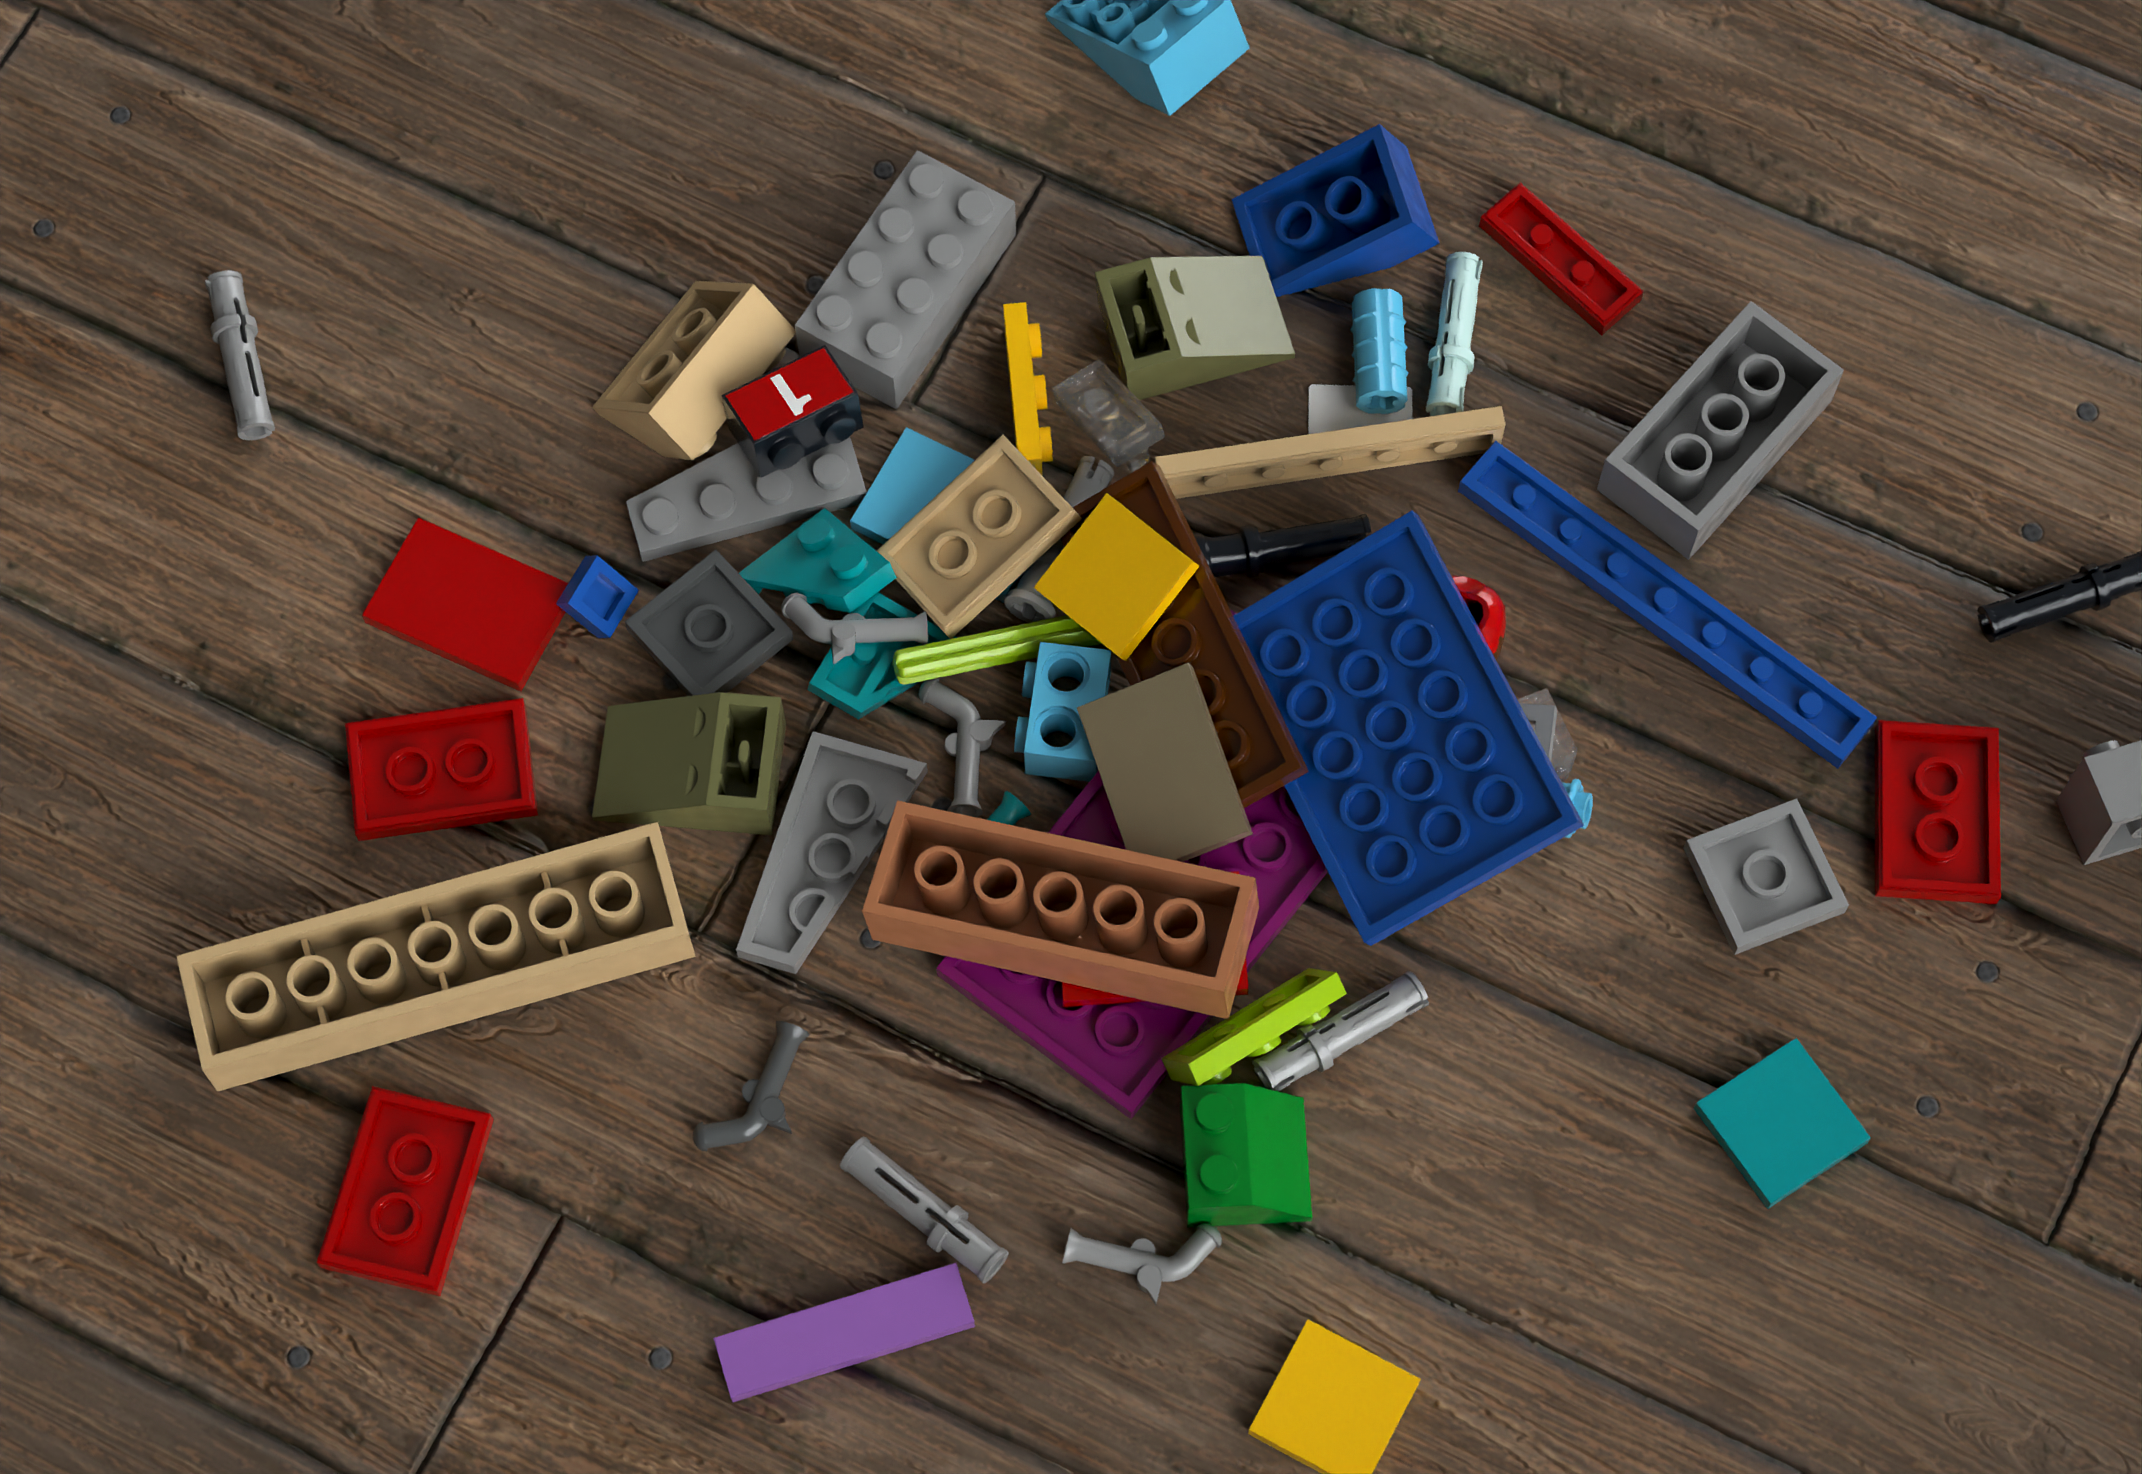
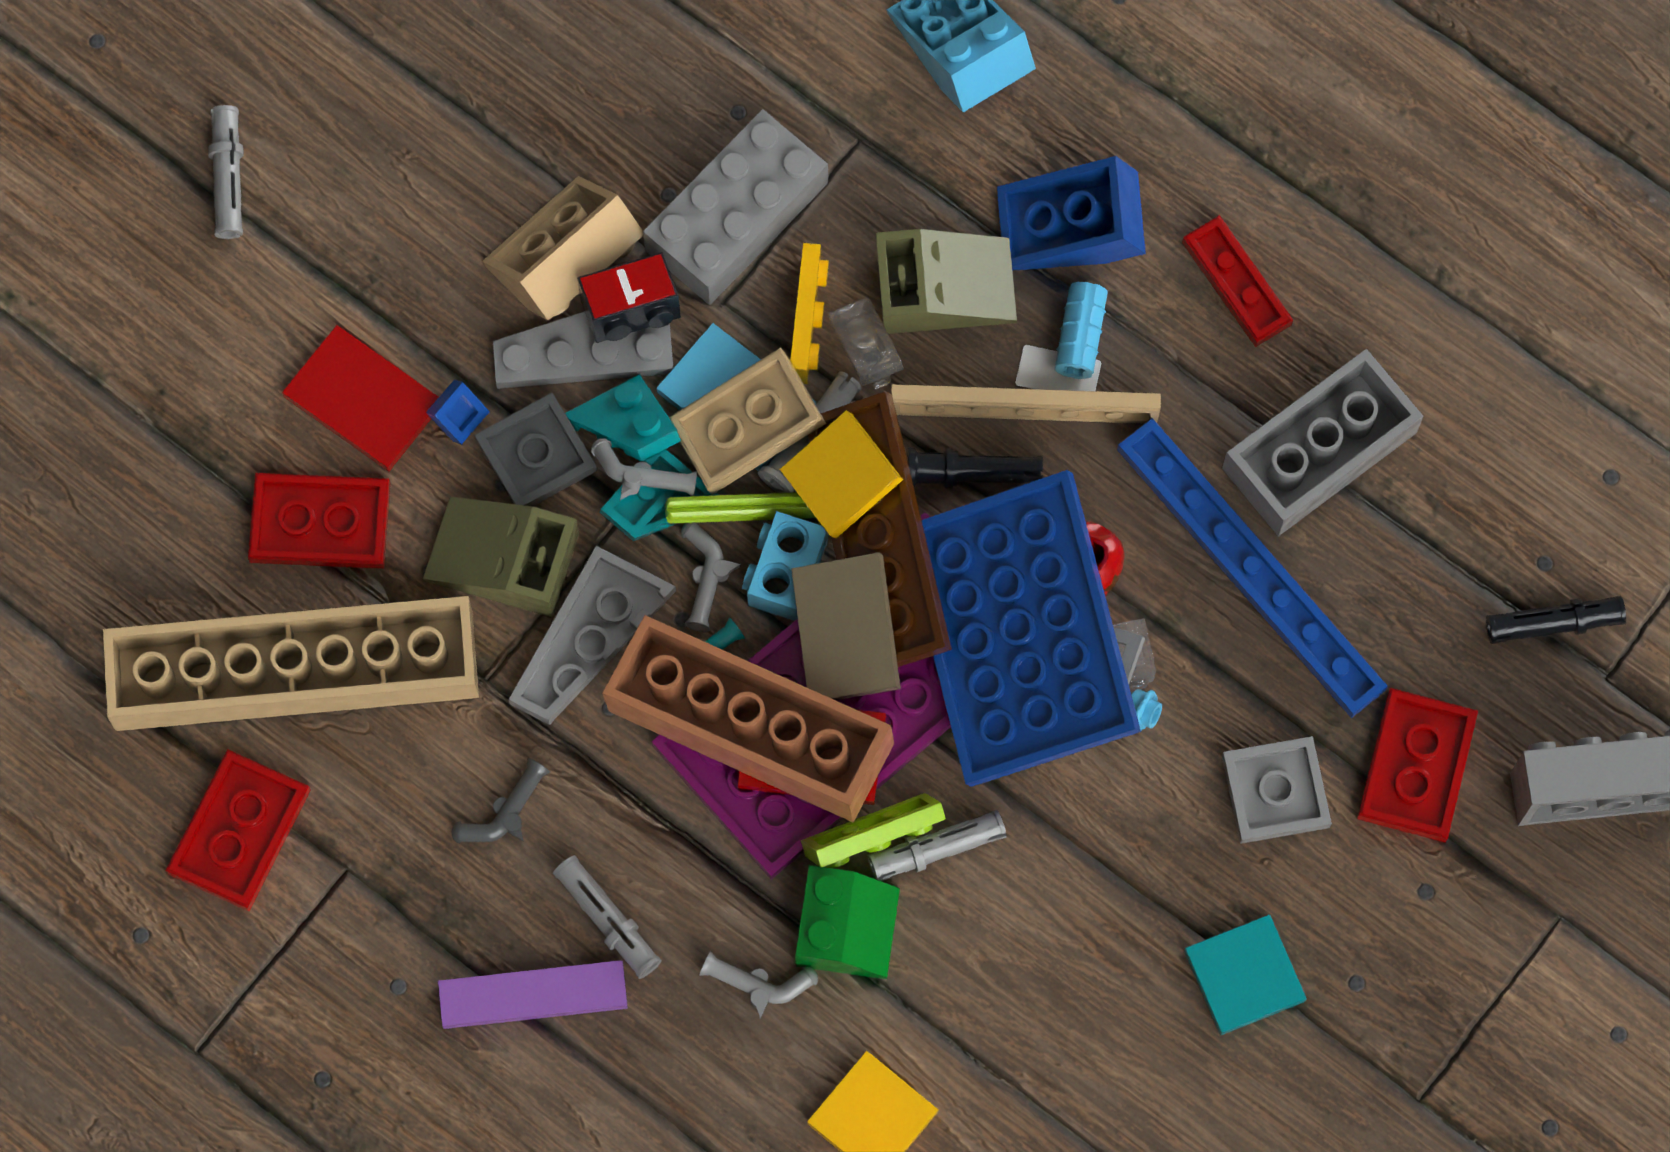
camera: 10 degrees right, 5 degrees up
(1451, 355) = (1135, 343): light aqua pin -> none

